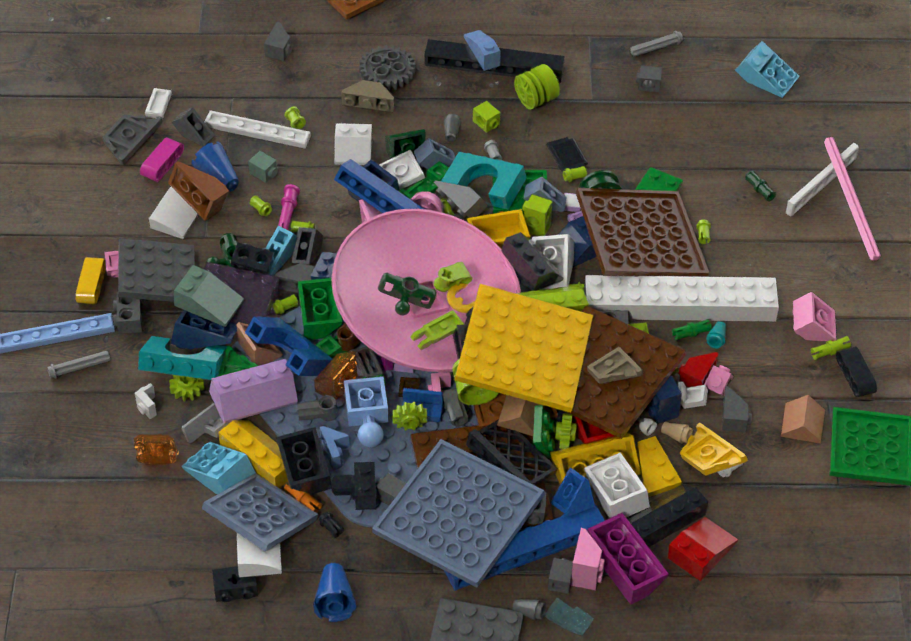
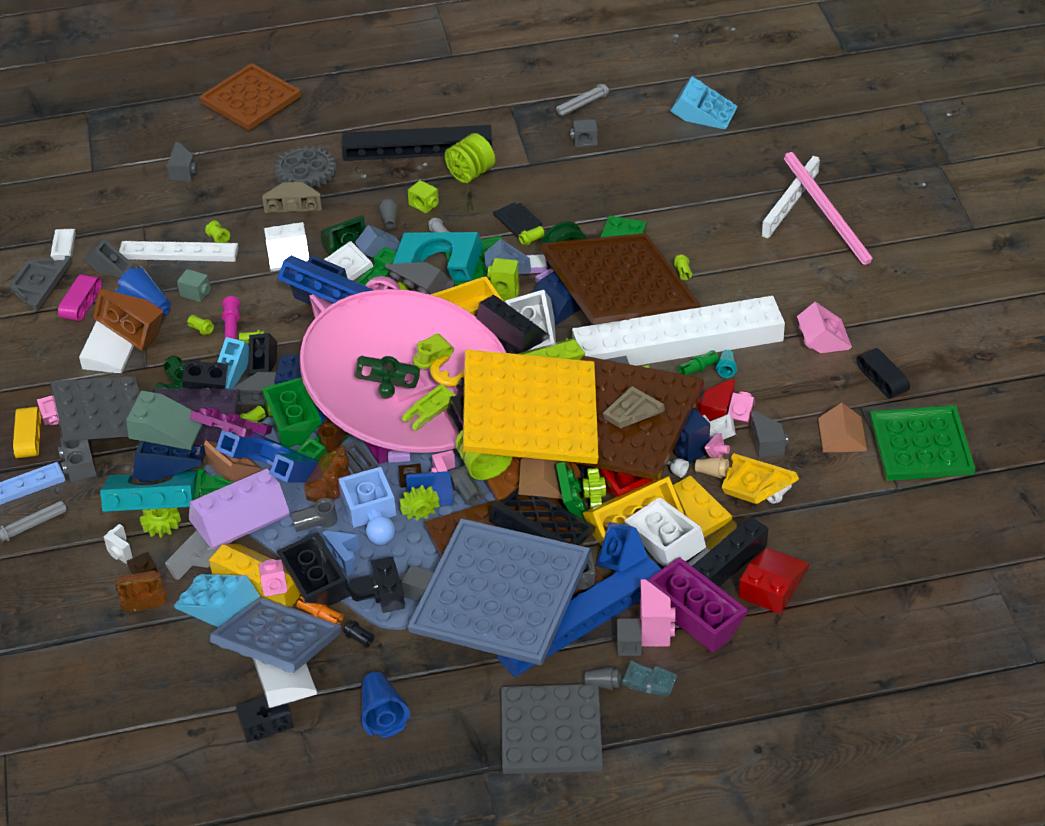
camera: 10 degrees left, 5 degrees down
(162, 424) = (141, 564): none -> dark brown plate
(262, 309) = (229, 422): none -> magenta wing
(267, 460) = (272, 577): none -> bright pink bracket
(484, 49) = (405, 131): medium blue slope -> none
(685, 414) = (716, 446): none -> bright pink piece
(760, 186) = (729, 214): dark green pin -> none
(830, 347) = (848, 355): lime pin -> none

